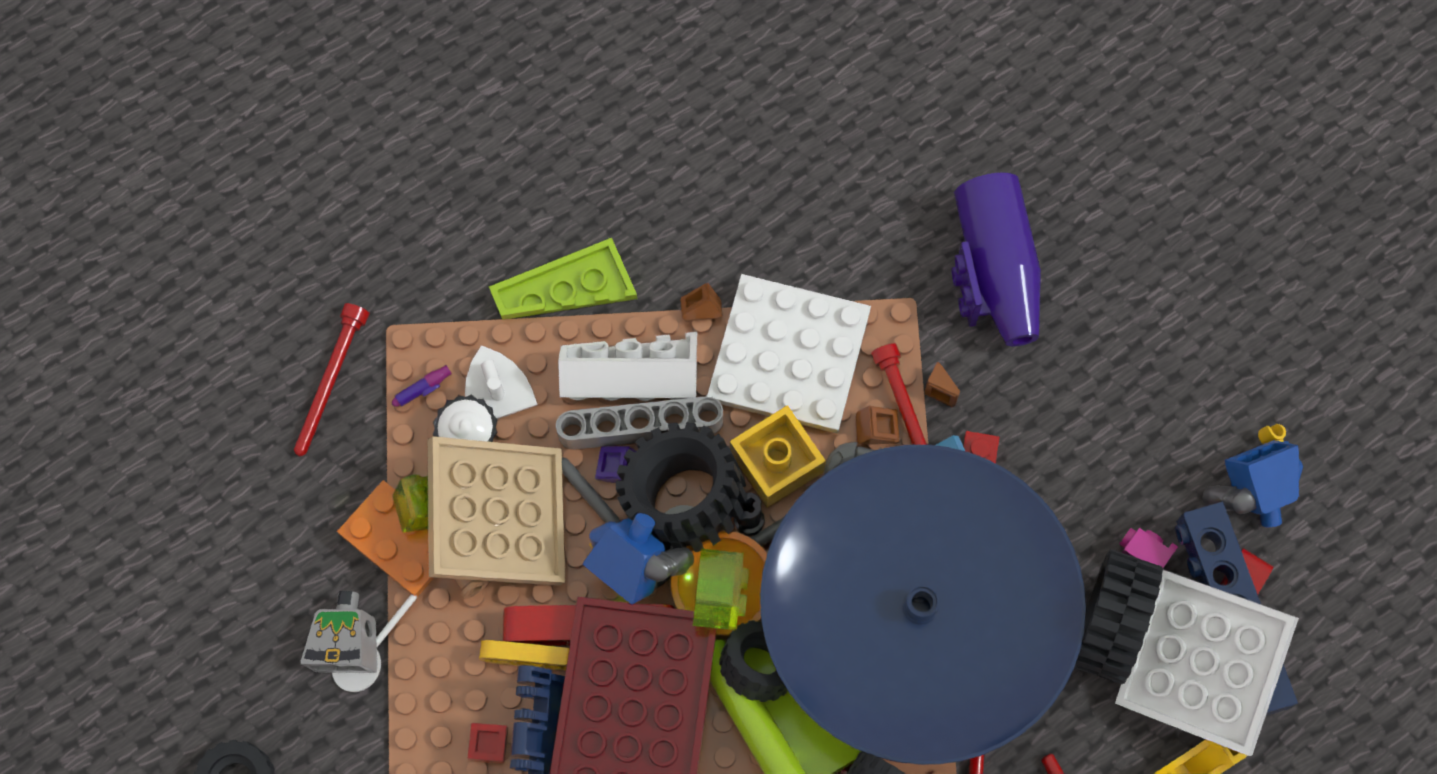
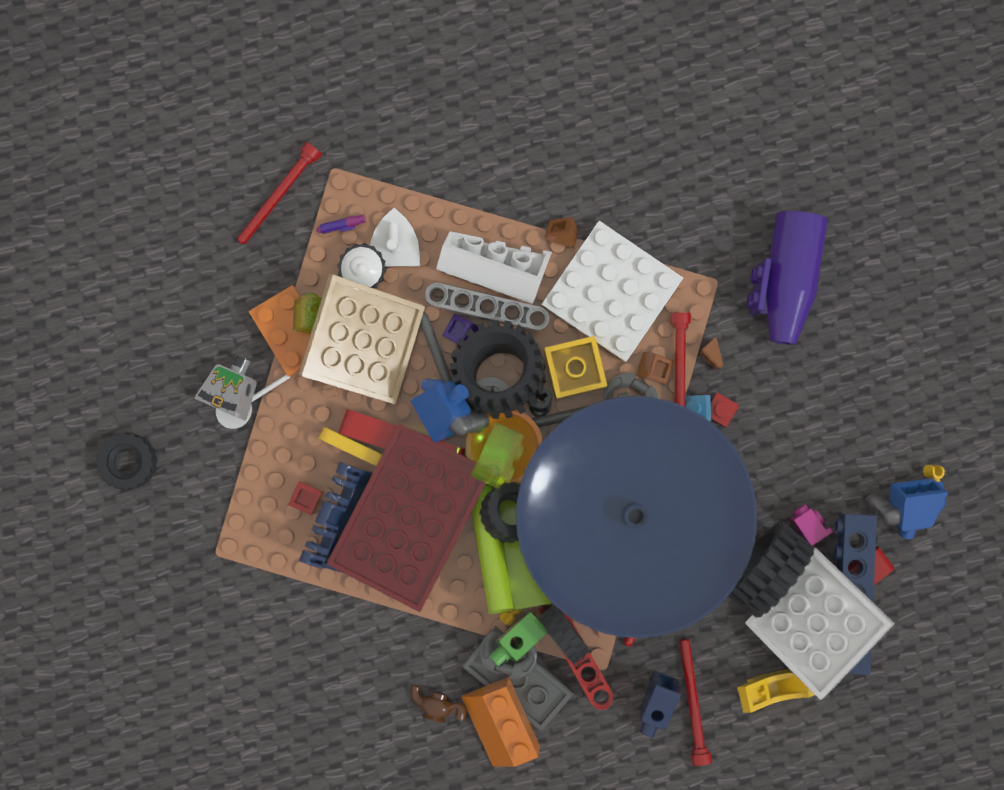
camera: 20 degrees right, 15 degrees up
(571, 282) = (471, 181): lime wing -> none

